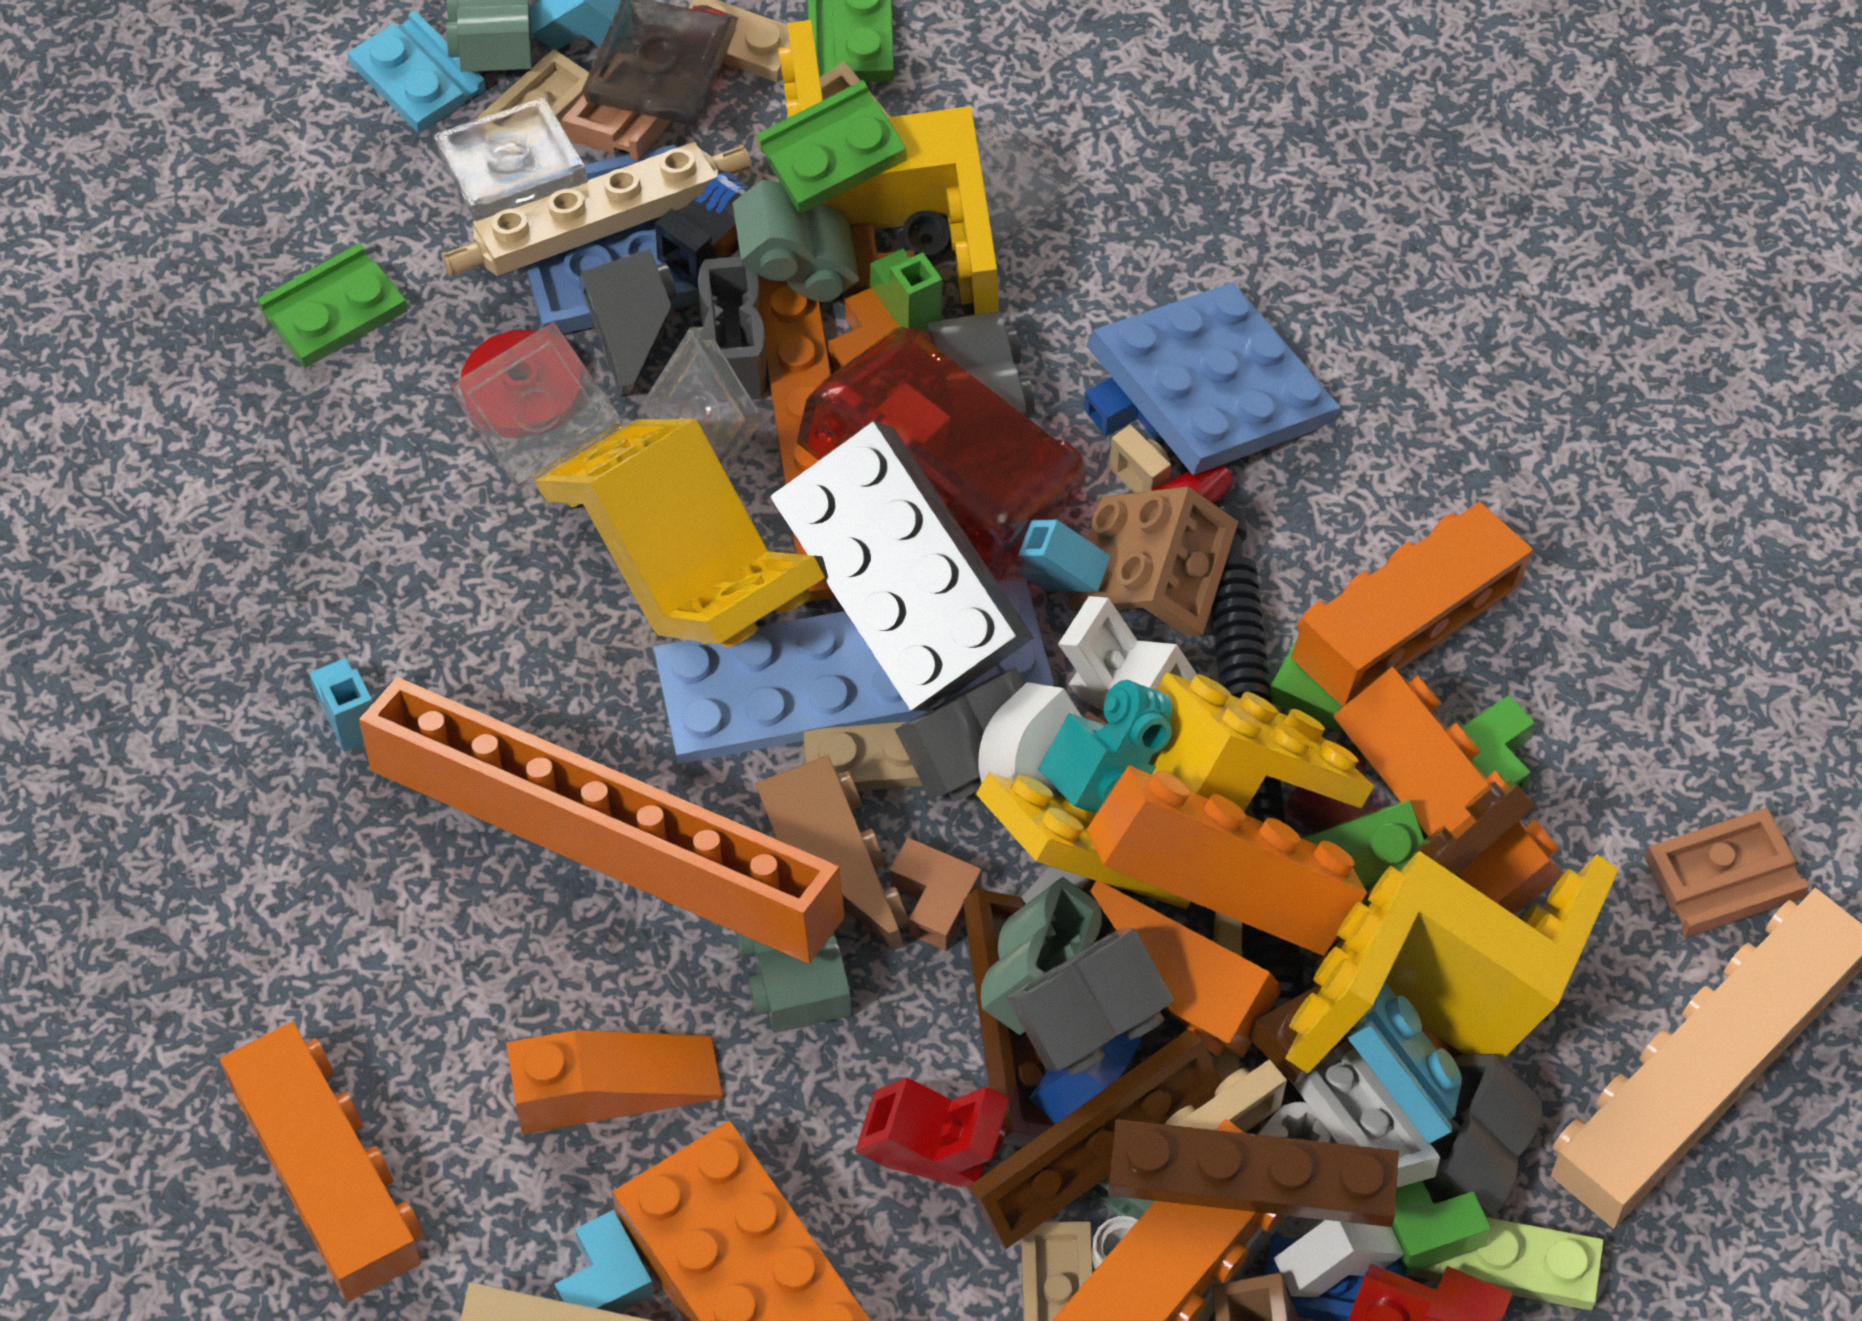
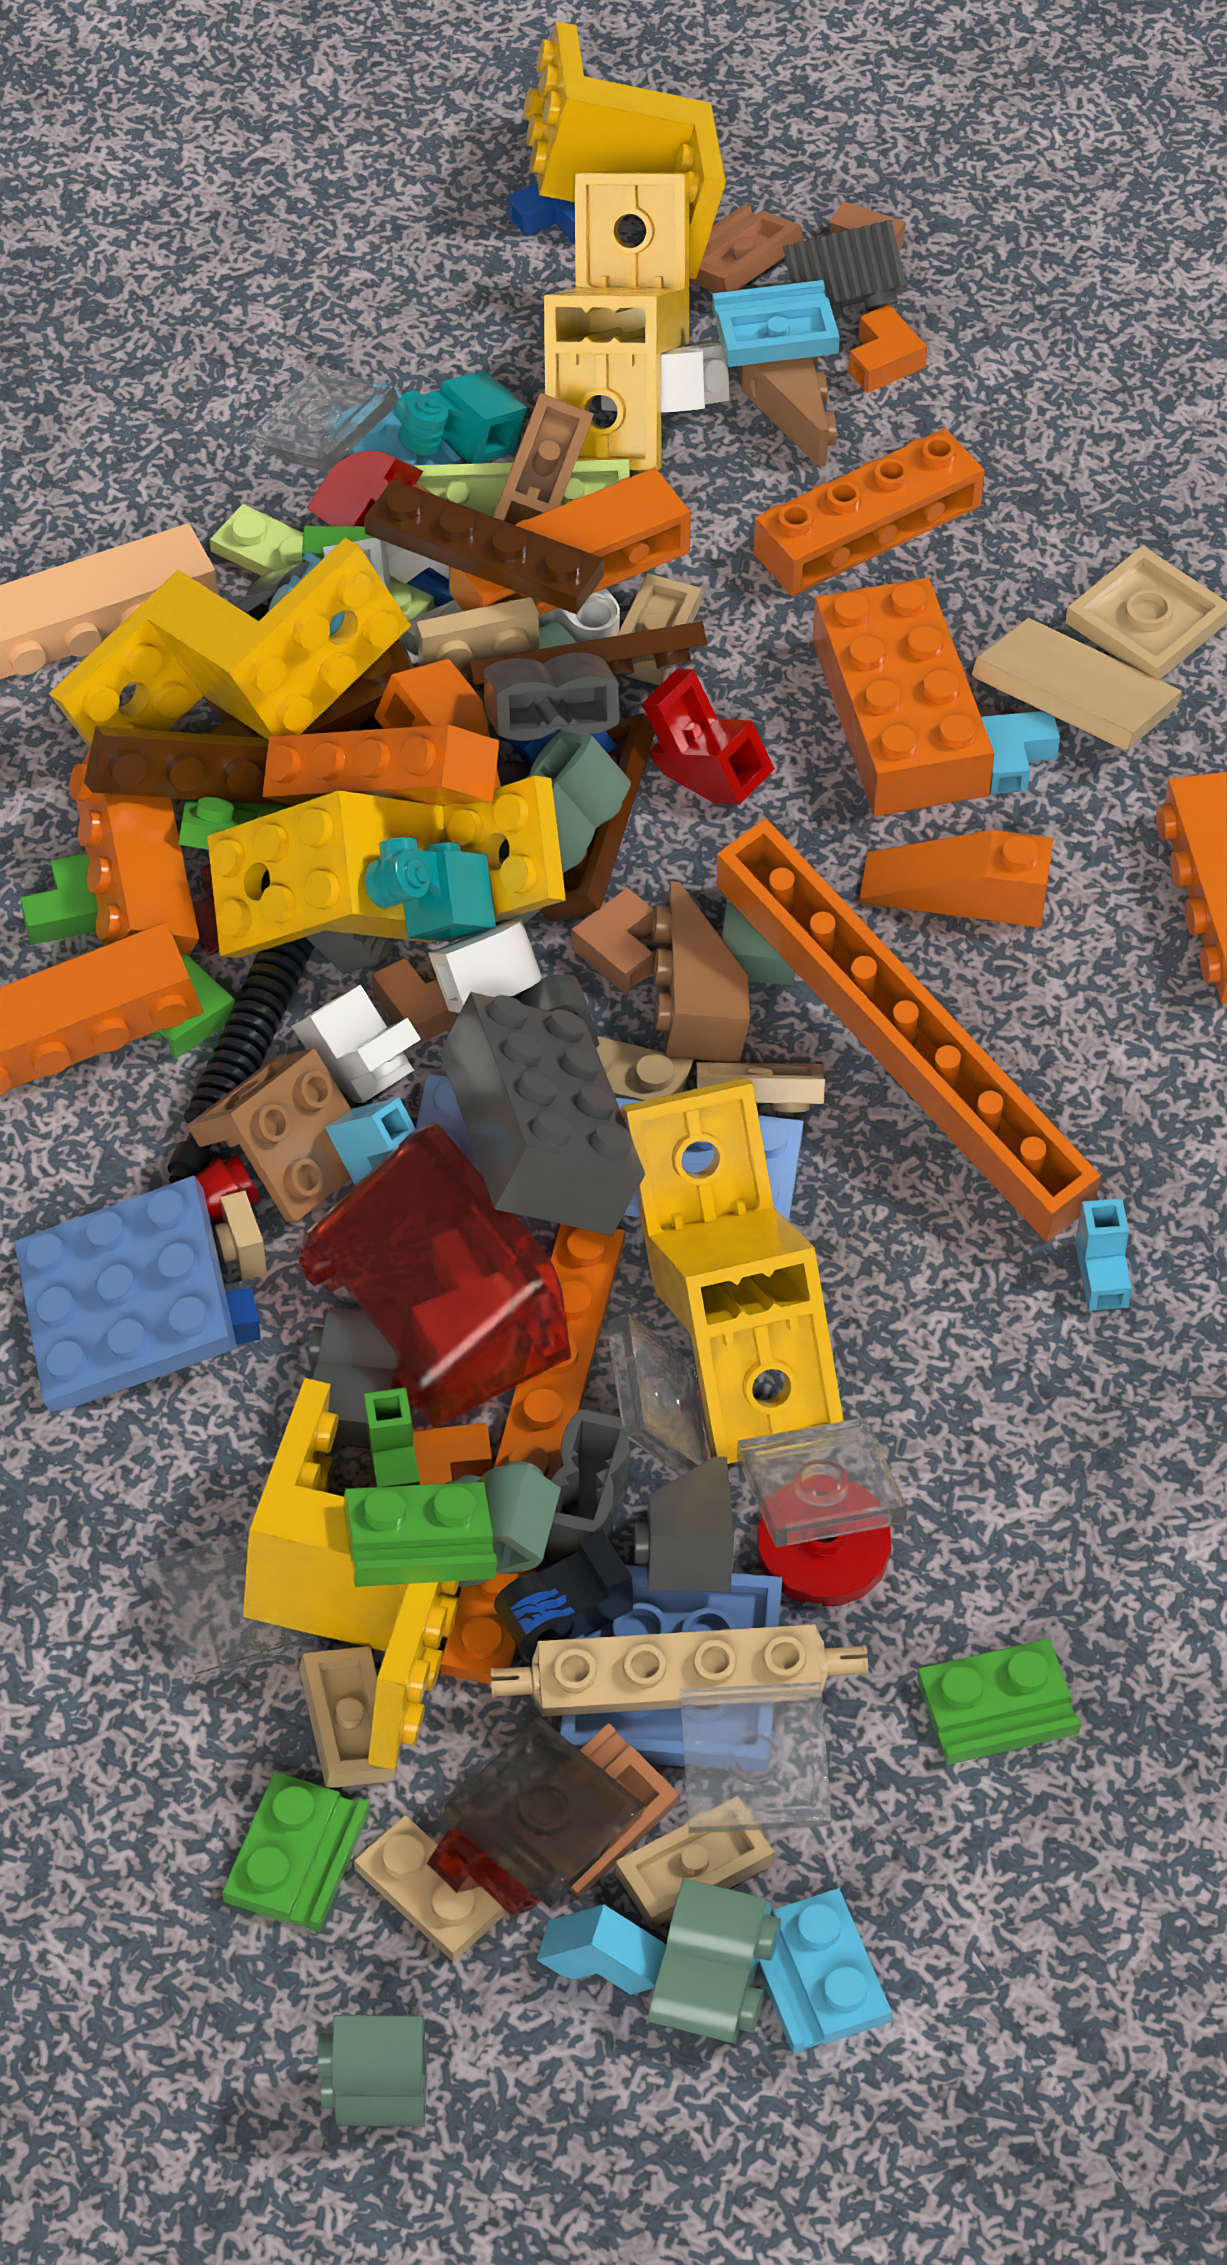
camera: 160 degrees left, 5 degrees down
(726, 772) = (784, 1085): none -> tan plate

